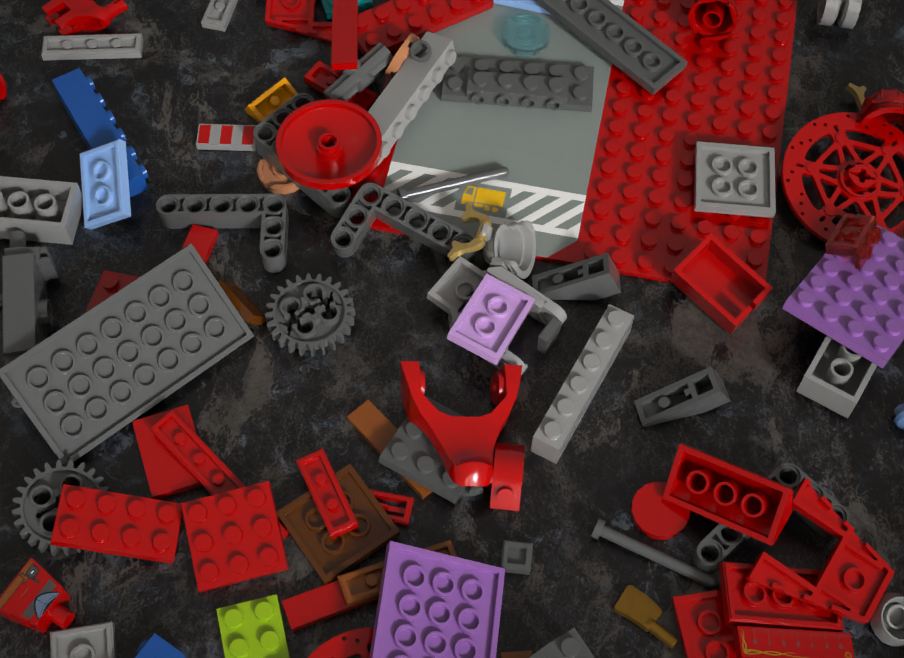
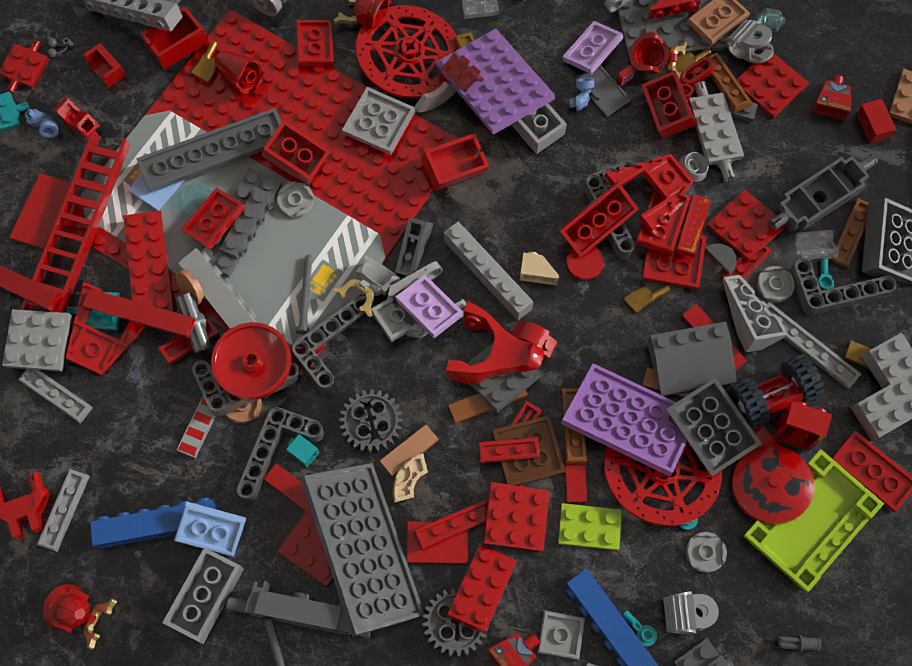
camera: 70 degrees left, 10 degrees up
(242, 251) = (302, 450): none -> teal brick
(242, 303) = (348, 461): reddish brown tile -> none
(248, 383) = (407, 477): none -> tan tile
(271, 100) = (177, 393): light orange slope -> none
(288, 375) = (413, 446): none -> nougat tile
(419, 48) = (205, 271): dark grey hinge -> none
(504, 49) = (213, 218): none -> red plate
(516, 557) = (585, 354): dark grey tile -> none
(548, 335) = (446, 278): dark grey tile -> none
(577, 130) = (295, 199): none -> light grey tile
(615, 444) = (537, 269): none -> tan slope
(633, 99) = (295, 153): none -> red brick
(653, 554) = (586, 300): dark grey bar -> none
(683, 398) = (520, 220): dark grey slope -> none
(803, 233) = (436, 98): none -> light grey tile
(805, 77) = (314, 43): none -> red tile

